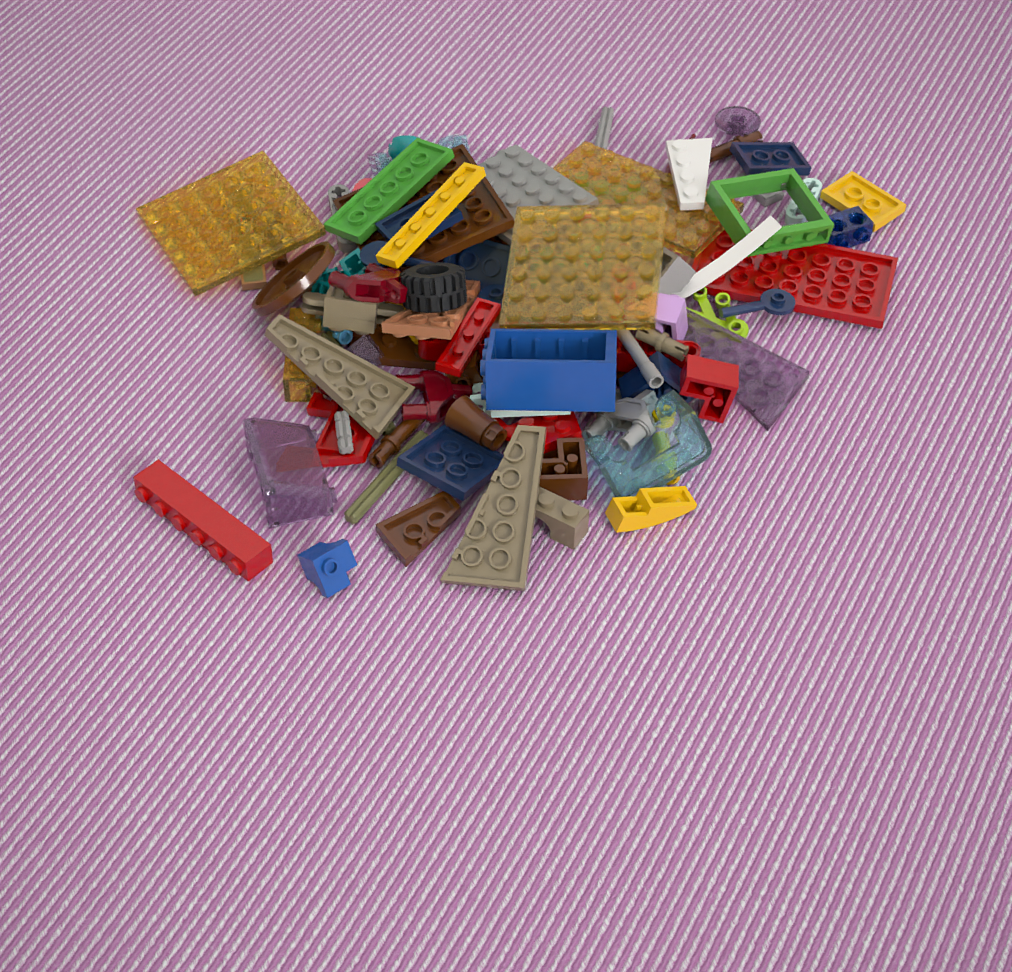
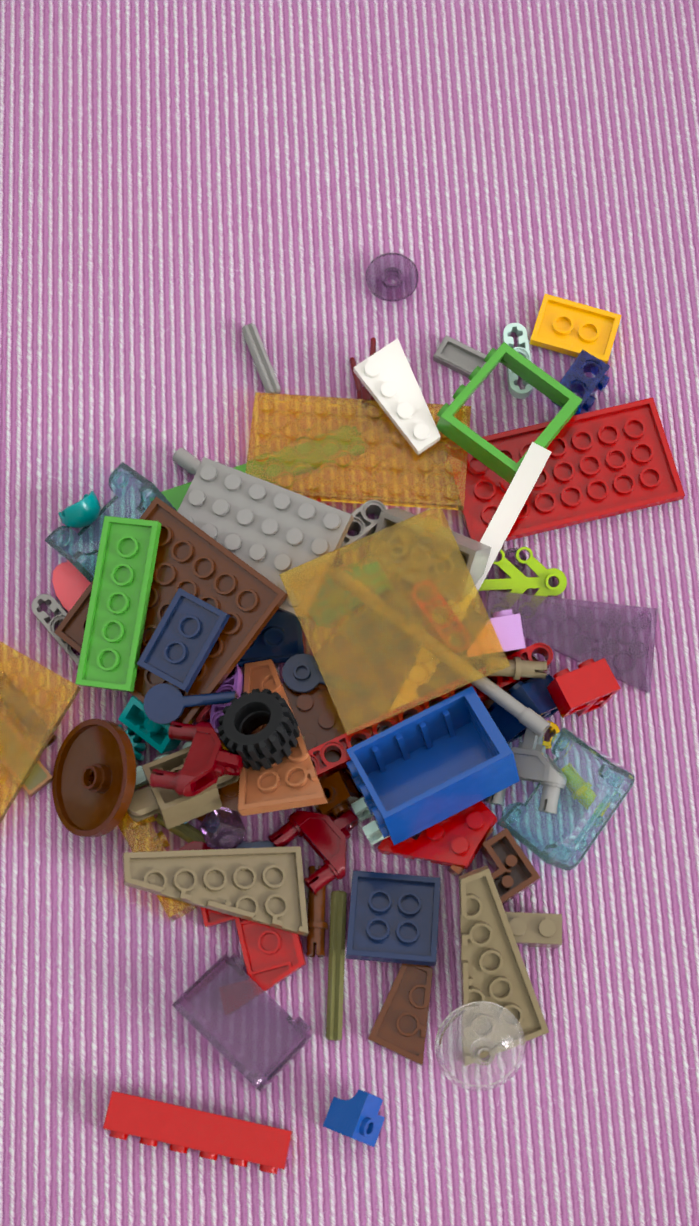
camera: 30 degrees left, 25 degrees up
(343, 432) = (269, 947): light grey axle -> none
(430, 215) = (202, 638): yellow plate -> none
(466, 584) = (477, 1029): none -> clear dish
(468, 337) = (324, 756): red tile -> none
(474, 423) = (392, 864): reddish brown plant -> none
(649, 508) = (603, 862): yellow slope -> none
(723, 150) = (410, 311): reddish brown pin -> none
(769, 157) = (457, 320): dark blue plate -> none
(772, 301) = (573, 528): dark blue piece -> none

